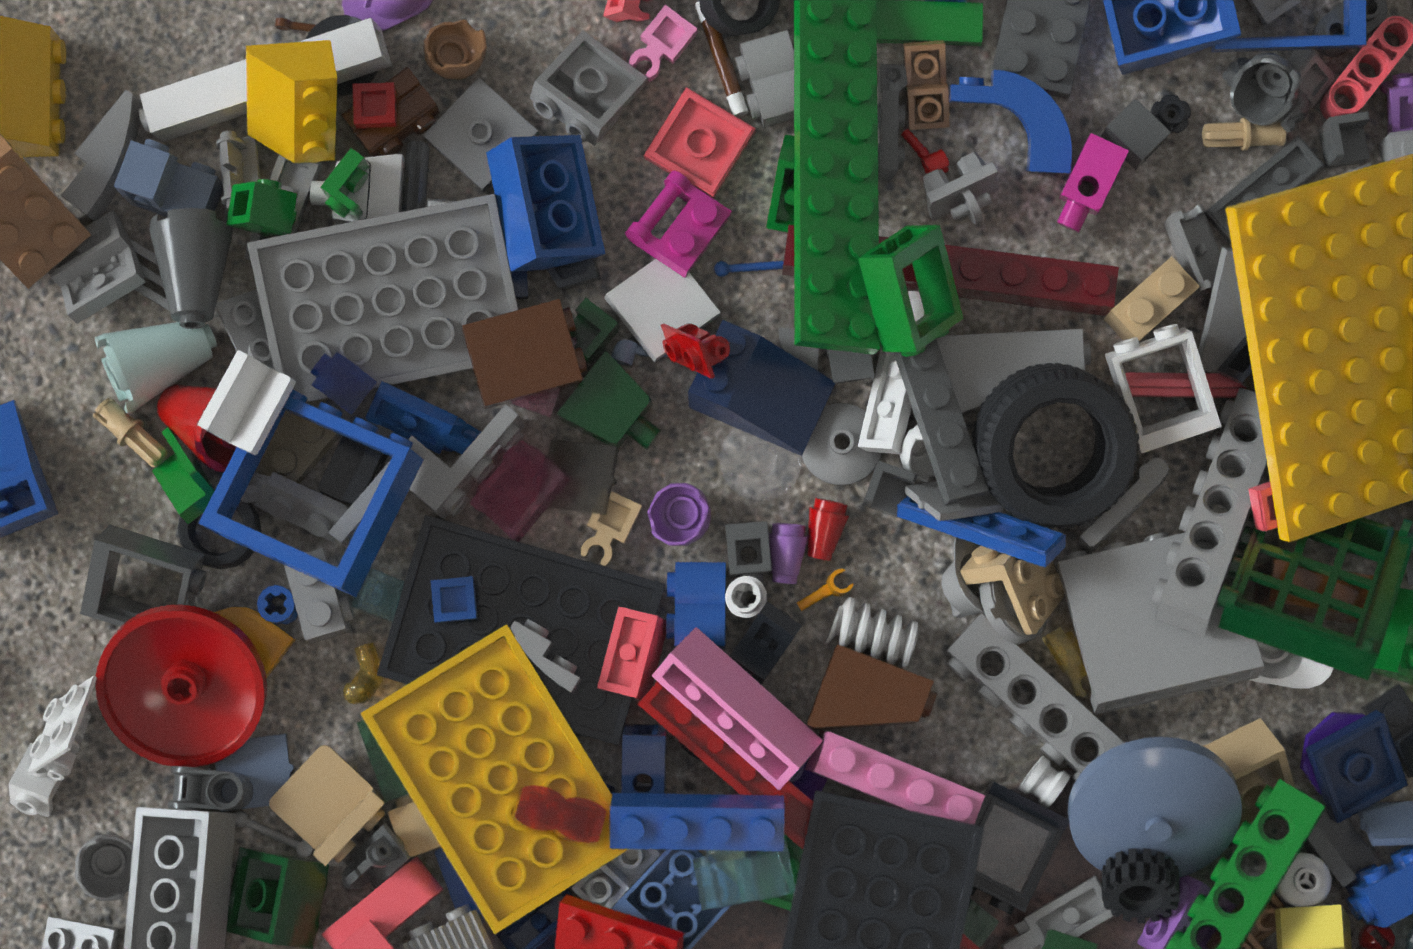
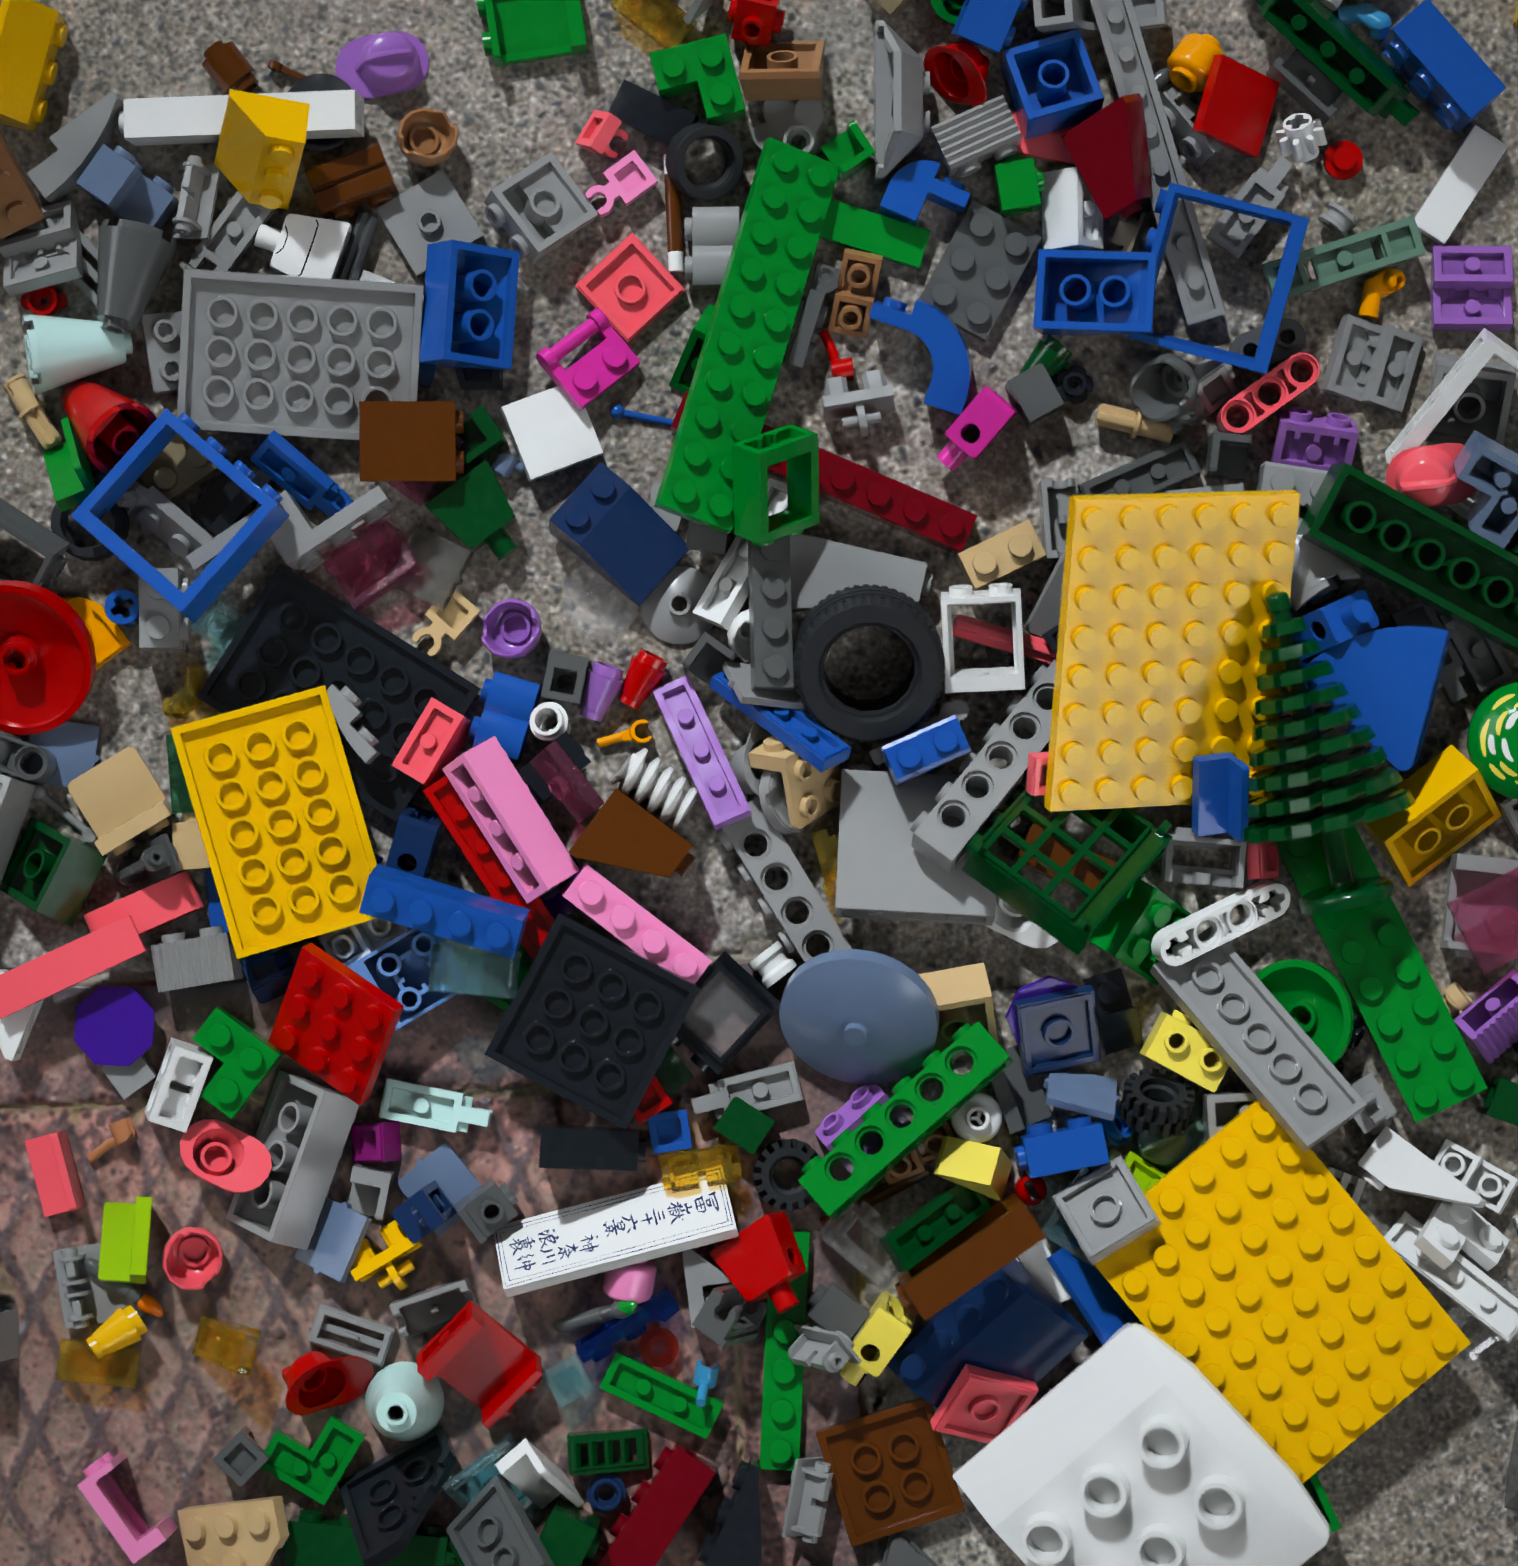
camera: 15 degrees right, 5 degrees up
(101, 323) = (32, 301): none -> red plate
(233, 33) = (229, 68): none -> reddish brown brick
(246, 403) = (143, 419): white panel -> none
(262, 208) = (207, 239): green brick -> none
(342, 381) = (236, 420): clear blue bracket -> none
(346, 178) = (291, 233): green bracket -> none
(374, 105) = (336, 171): red plate -> none
(454, 599) = (284, 649): blue plate -> none
(570, 819) = (331, 875): clear red brick -> none
(694, 348) = (566, 480): red hinge -> none
(783, 653) = (566, 782): none -> clear pink plate
(910, 585) = (701, 752): none -> medium lavender plate
(1137, 87) = (1050, 354): none -> dark green cone
(1140, 516) = (925, 750): none -> blue brick
(1140, 885) = (828, 1080): black tyre -> none

